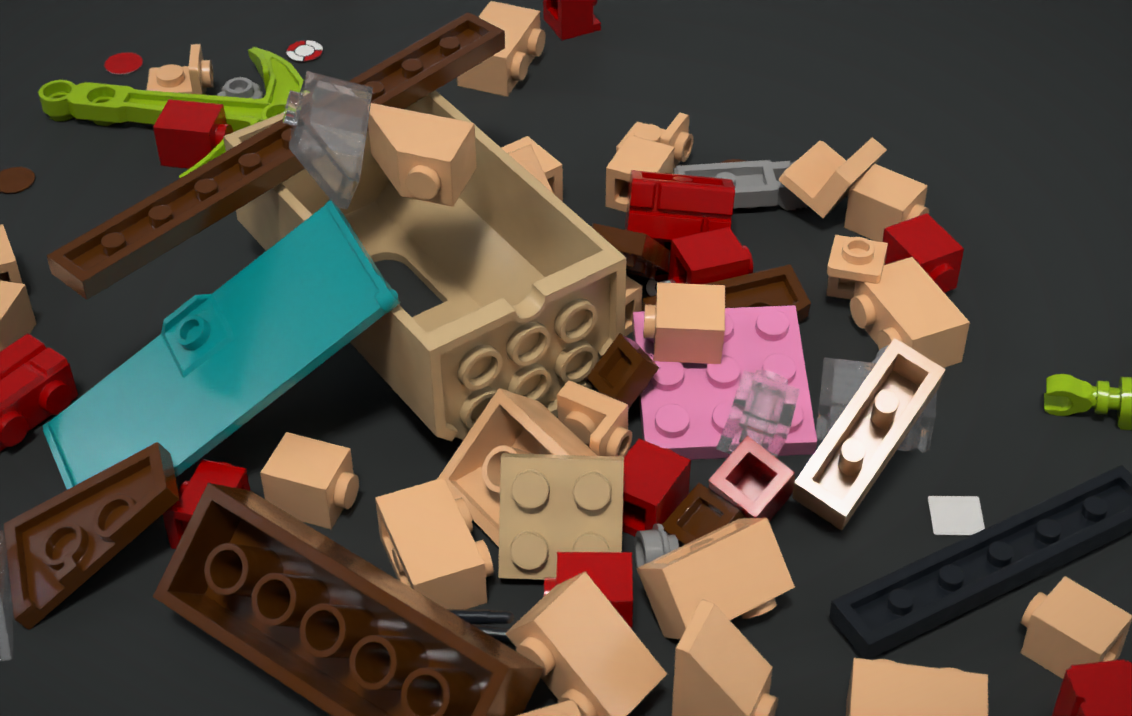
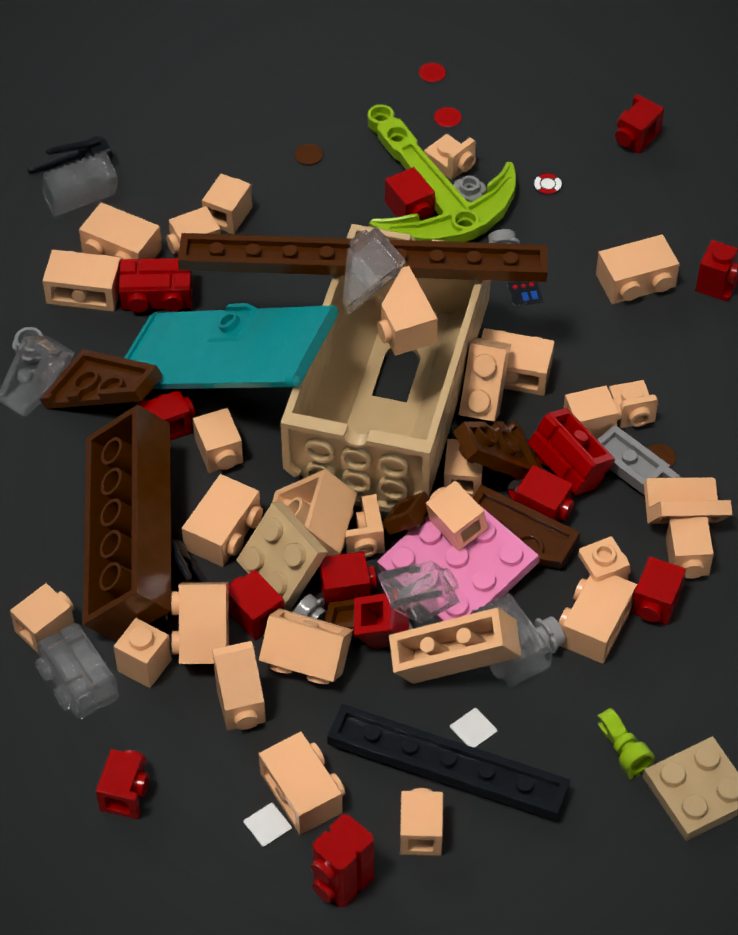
camera: 50 degrees right, 10 degrees up
(53, 40) = (432, 72): none -> red sticker

